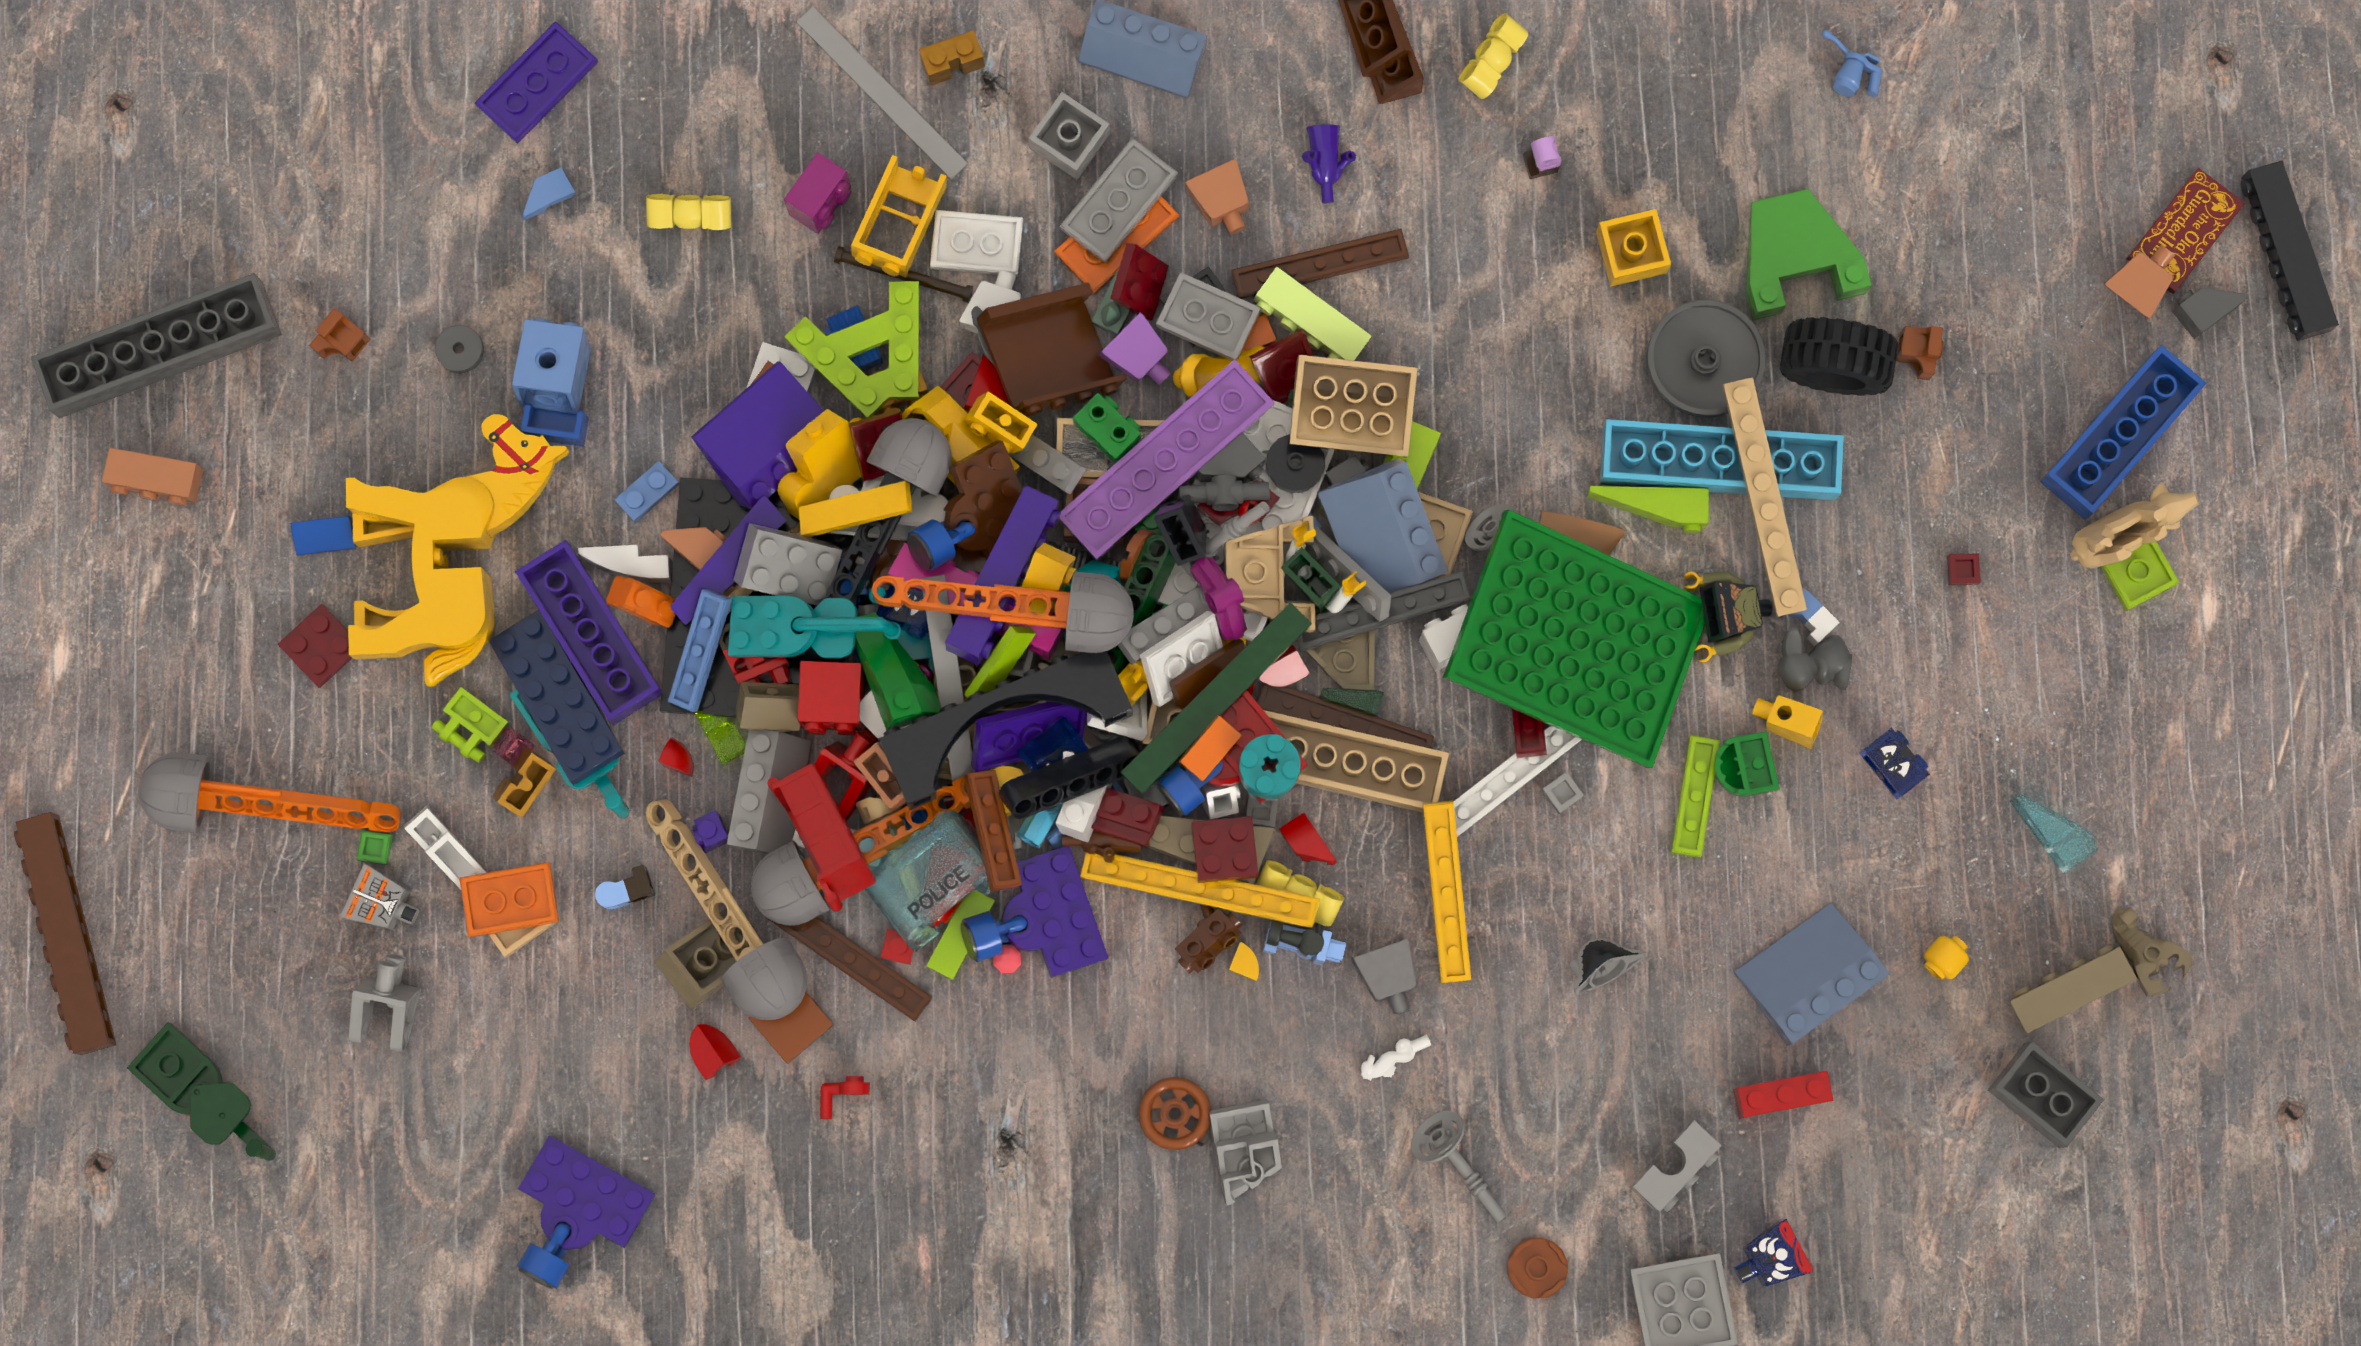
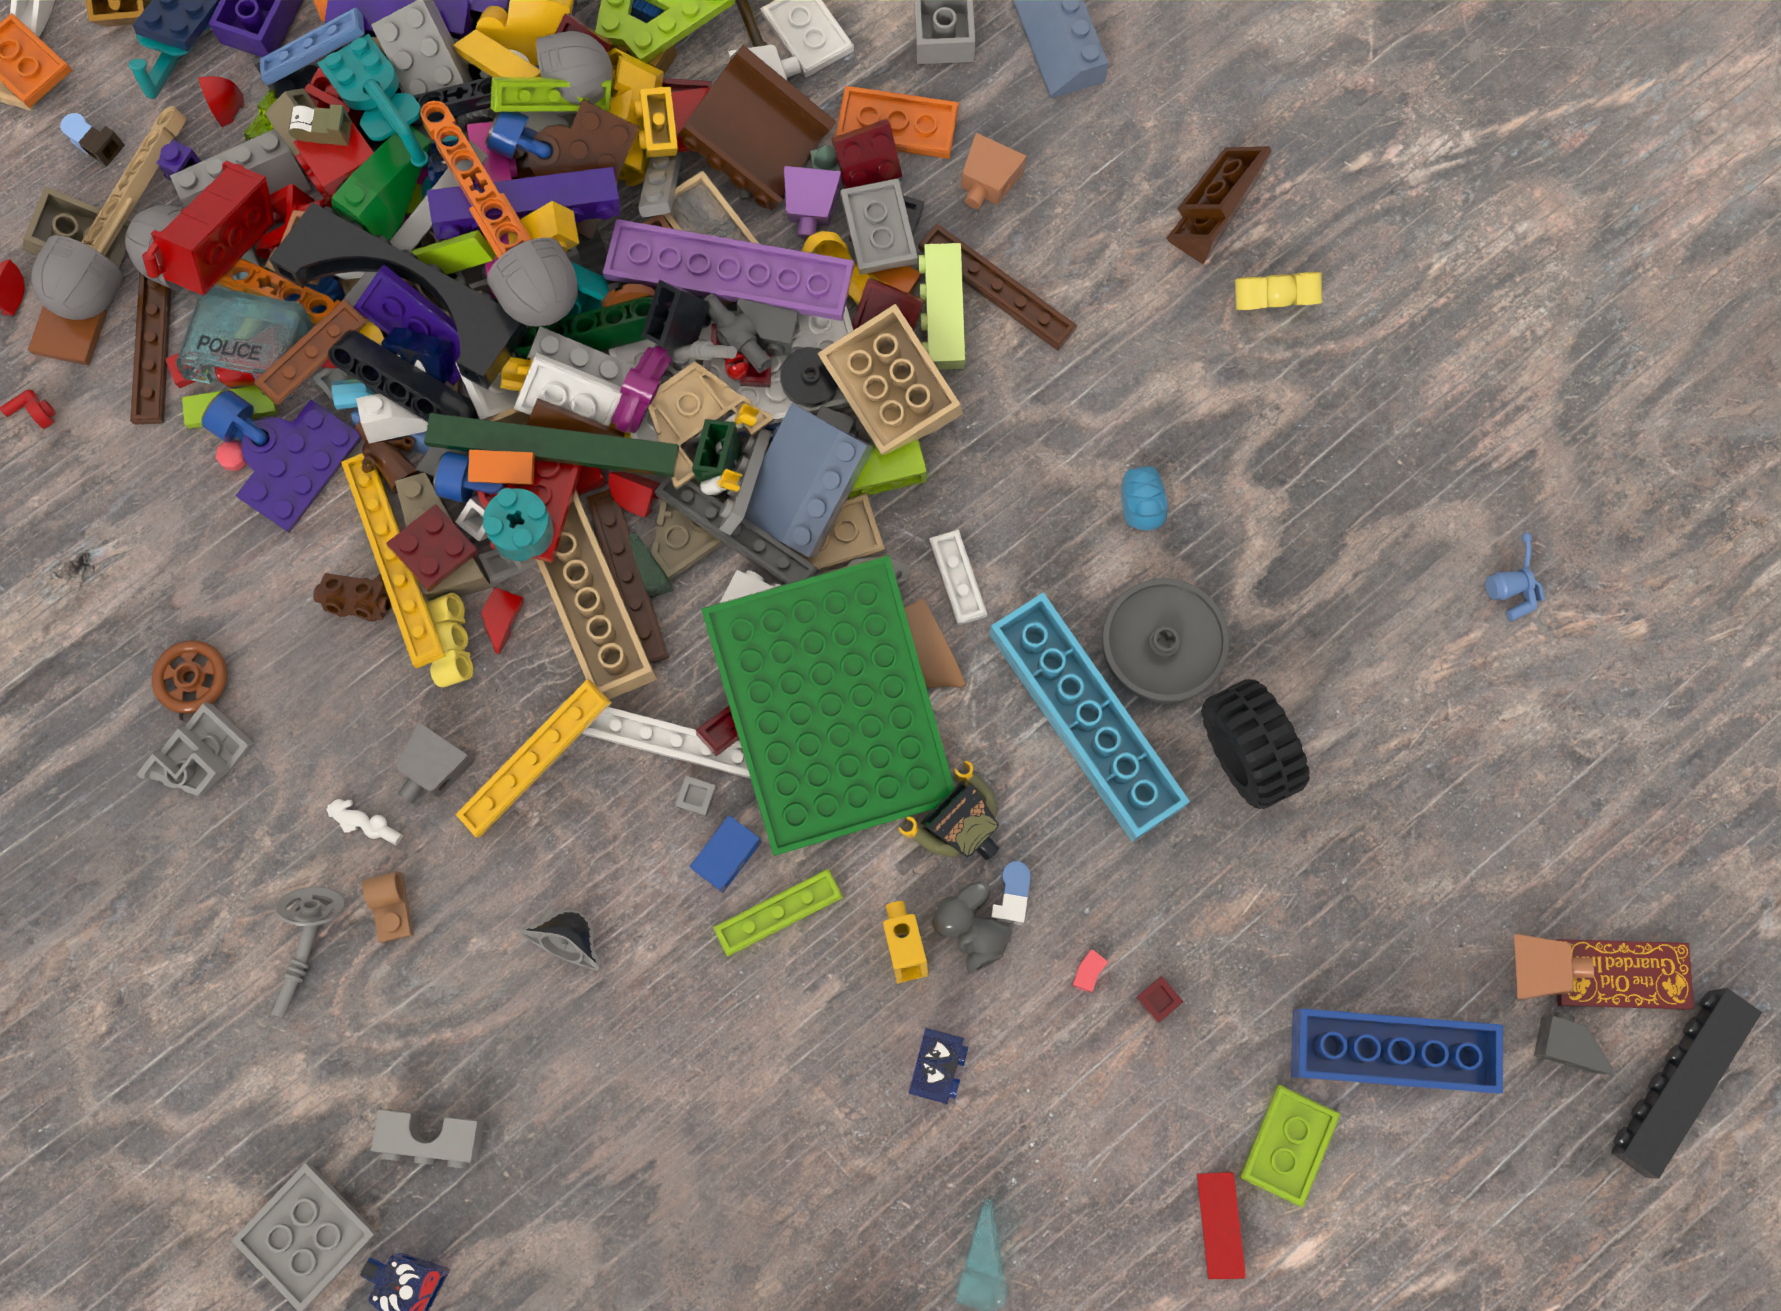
camera: 55 degrees right, 5 degrees down
(806, 688) = (320, 125): none -> olive leg
(927, 498) = (536, 95): none -> lime tile
(1107, 427) = (720, 205): green brick -> none
(1118, 200) = (924, 100): light grey tile -> none
(1127, 817) = (406, 455): dark red plate -> none
(1245, 963) = (360, 642): yellow tile -> none
(1304, 942) = (408, 683): hips -> none
(1324, 158) = (1079, 231): dark purple piece -> none
(1477, 1081) = (390, 906): none -> medium nougat plate
(1536, 473) = (958, 577): none -> white tile
(1537, 1268) = (257, 1080): dark orange tile -> none
(1542, 158) = (1227, 387): lavender leg -> none
(1580, 287) = (1144, 498): none -> dark azure piece
(1626, 801) = (725, 854): none -> blue panel
(1633, 247) = (1210, 512): yellow brick -> none
(1669, 506) = (1016, 707): lime slope -> none
(1746, 765) = (836, 935): green slope -> none
(1764, 497) = (1080, 772): tan plate -> none
(1783, 1094) = (559, 1186): red brick -> none
(1796, 239) = (1327, 640): bright green wedge -> none
(1811, 974) = (689, 1131): sand blue slope -> none
(1906, 604) = (1088, 971): none -> coral piece
(1921, 349) = (1323, 816): dark orange brick -> none
(1946, 957) = (793, 1245): yellow head -> none
(2126, 529) = (1316, 1122): tan animal -> none
(2150, 648) = (1221, 1225): none -> red slope

